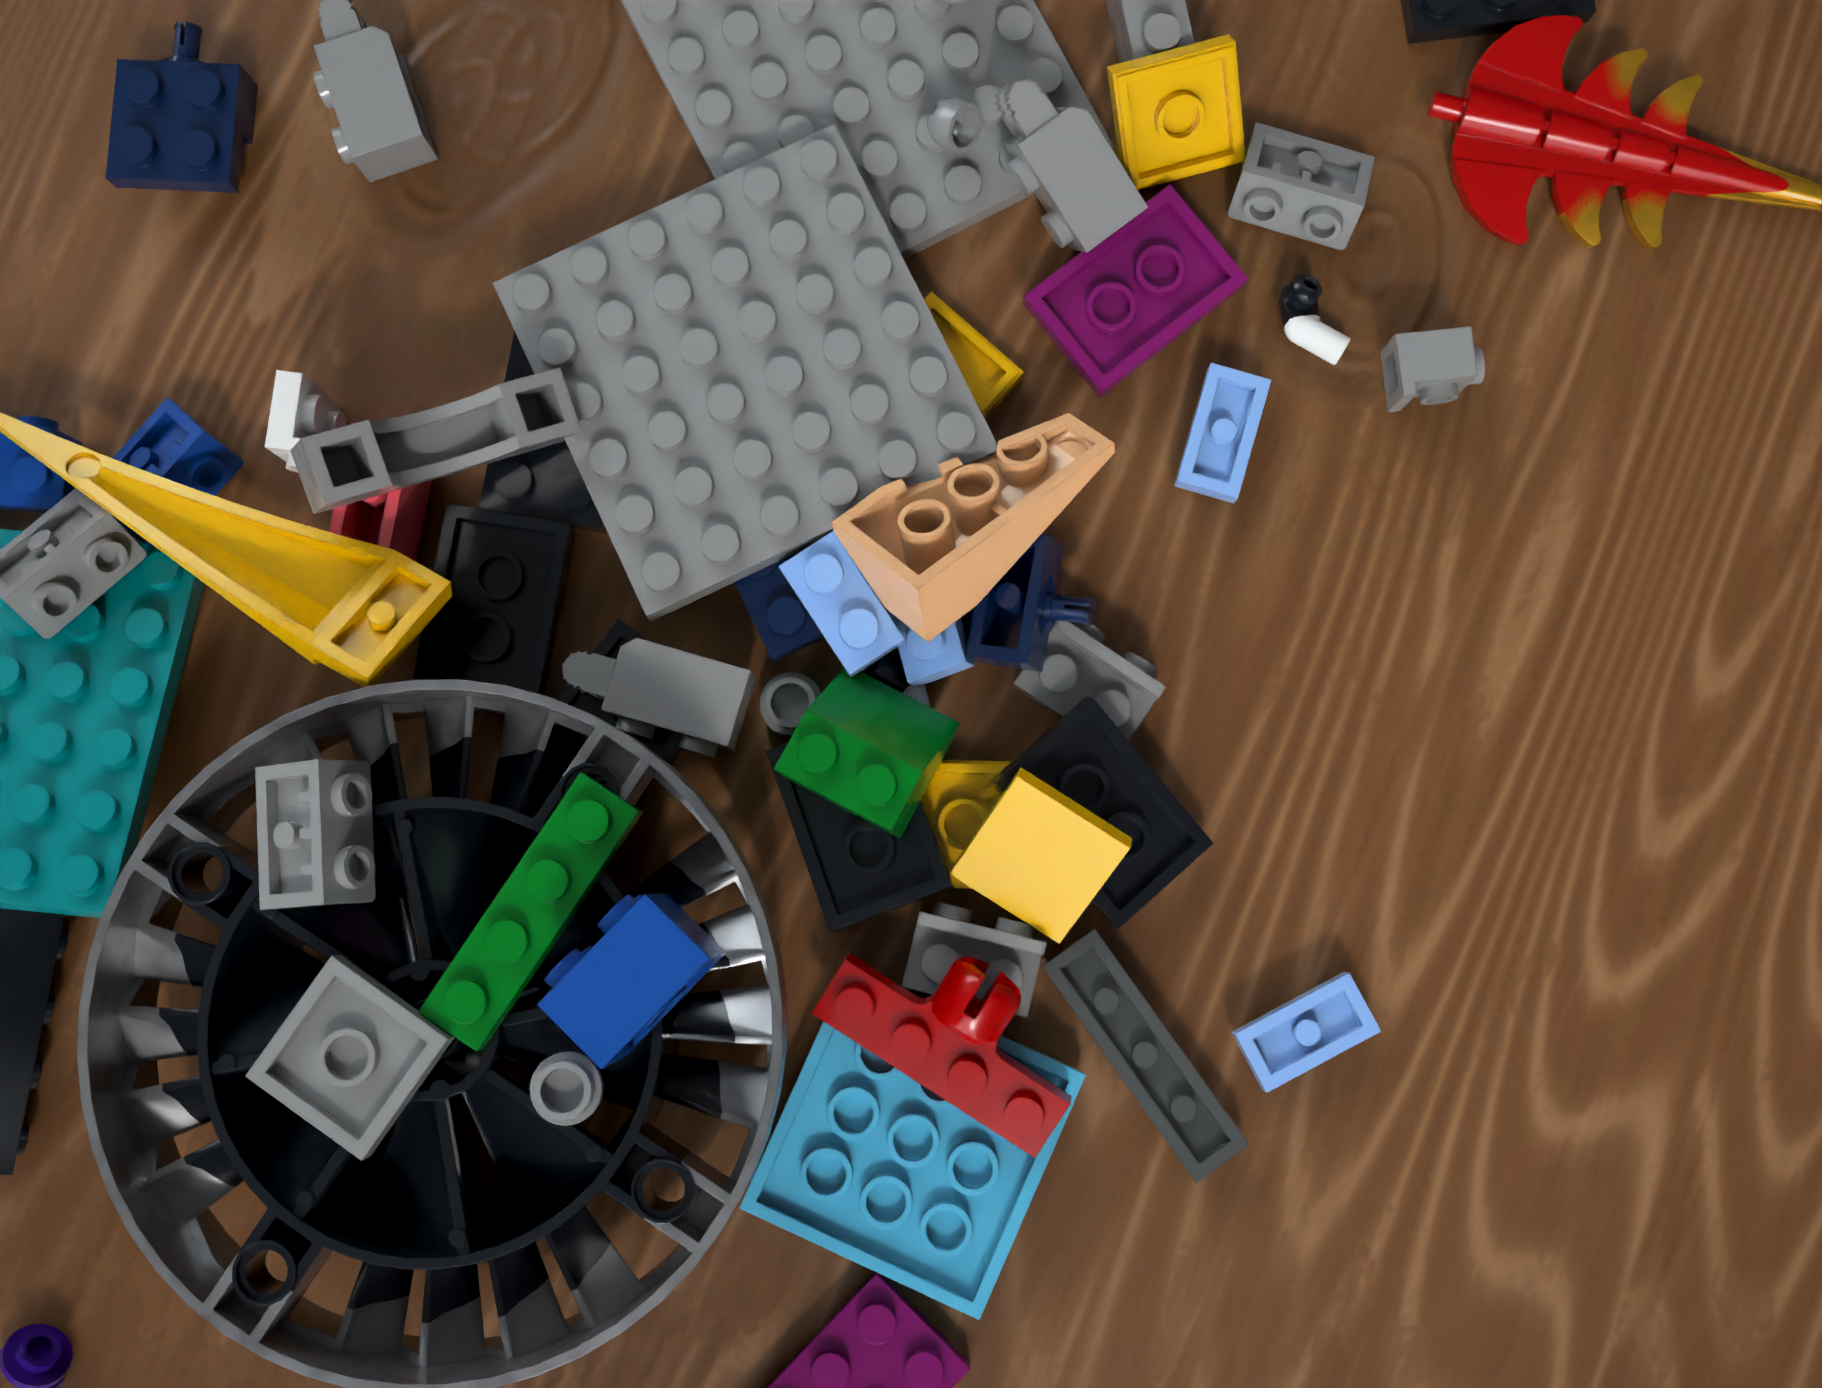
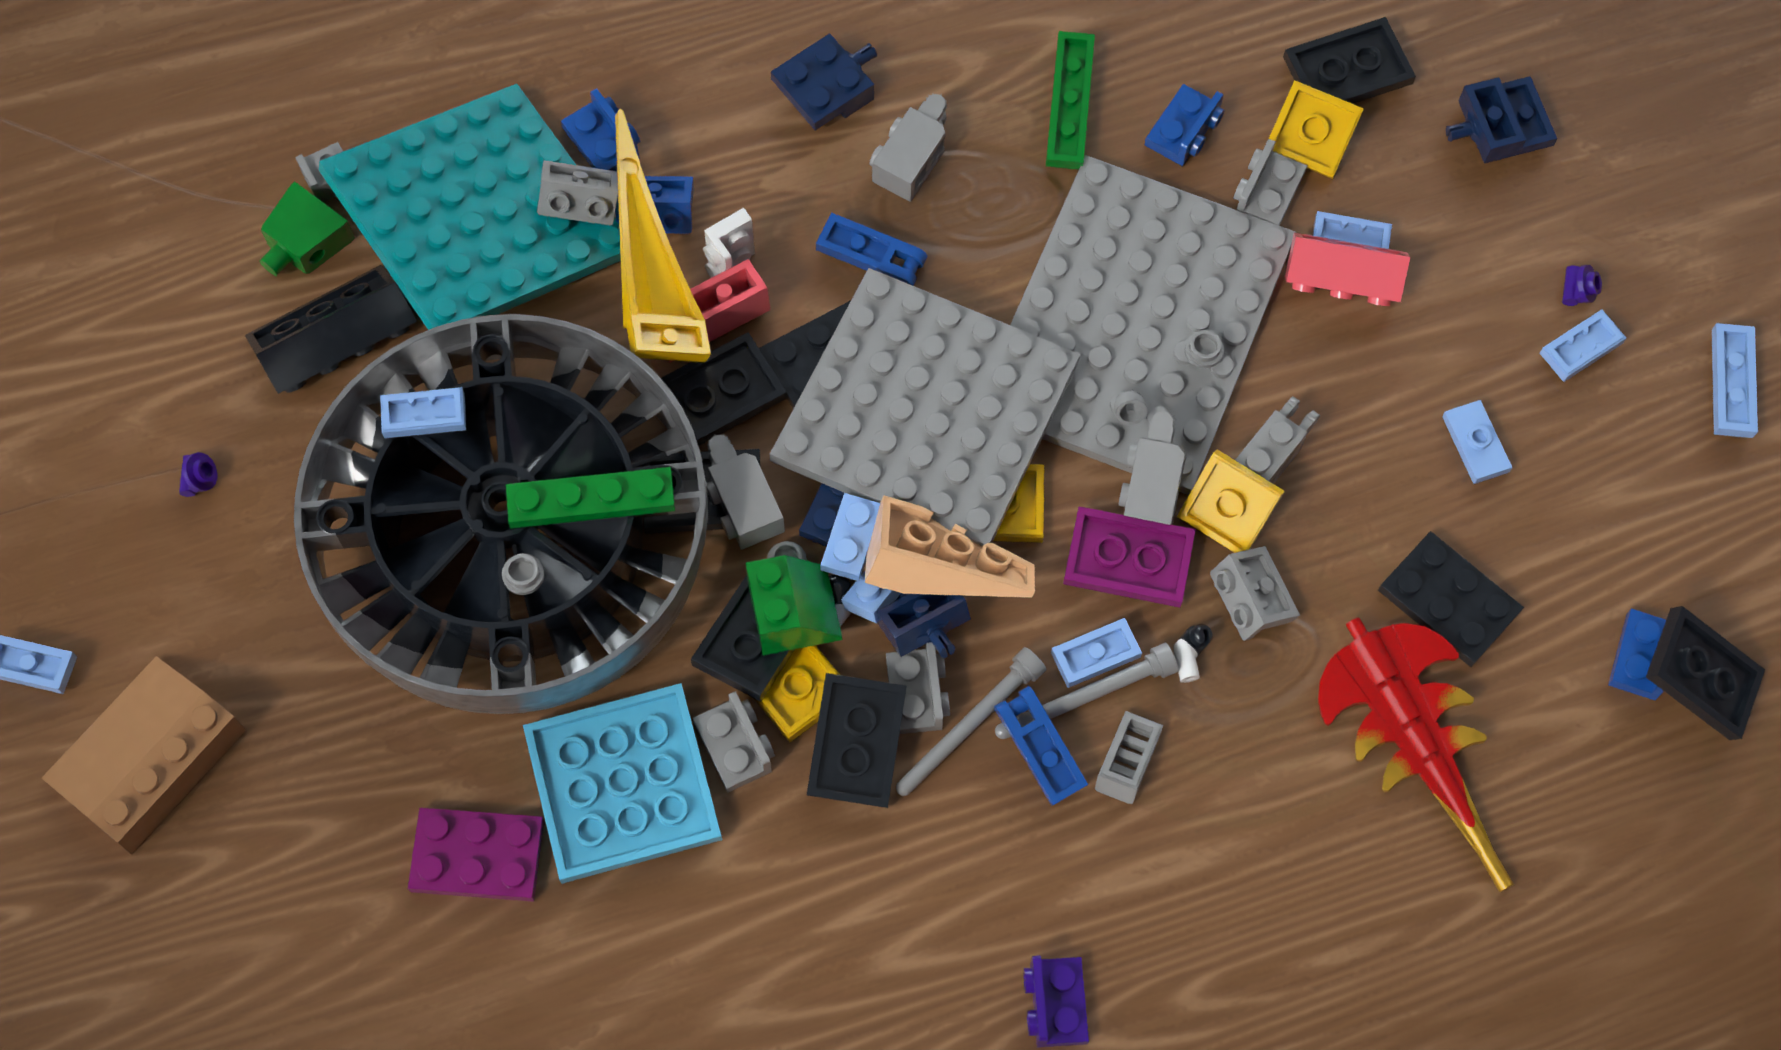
camera: 45 degrees right, 15 degrees down
(214, 1042) = (423, 412): none -> light blue plate
(315, 833) = (549, 380): light grey bracket -> none
(349, 1056) = (462, 472): light grey plate -> none
(433, 443) = (758, 292): light grey arch -> none
(463, 261) = (869, 249): none -> blue plate
(630, 977) = (597, 554): blue brick -> none
(949, 1044) = (683, 755): red plate -> none
(1041, 855) = (809, 723): yellow tile -> none
(1145, 1055) = (755, 859): dark grey plate -> none
(1171, 535) = (1025, 667): none -> light grey piece
(1290, 597) = (1041, 747): none -> blue plate
(1294, 370) = (1157, 663): none -> light grey piece
(1306, 1031) = (832, 928): light blue plate -> none
(1412, 515) = (1121, 781): none -> light grey slope
(1430, 366) = (1218, 724): light grey brick -> none
(1604, 837) = (1058, 1001): none -> dark purple bracket

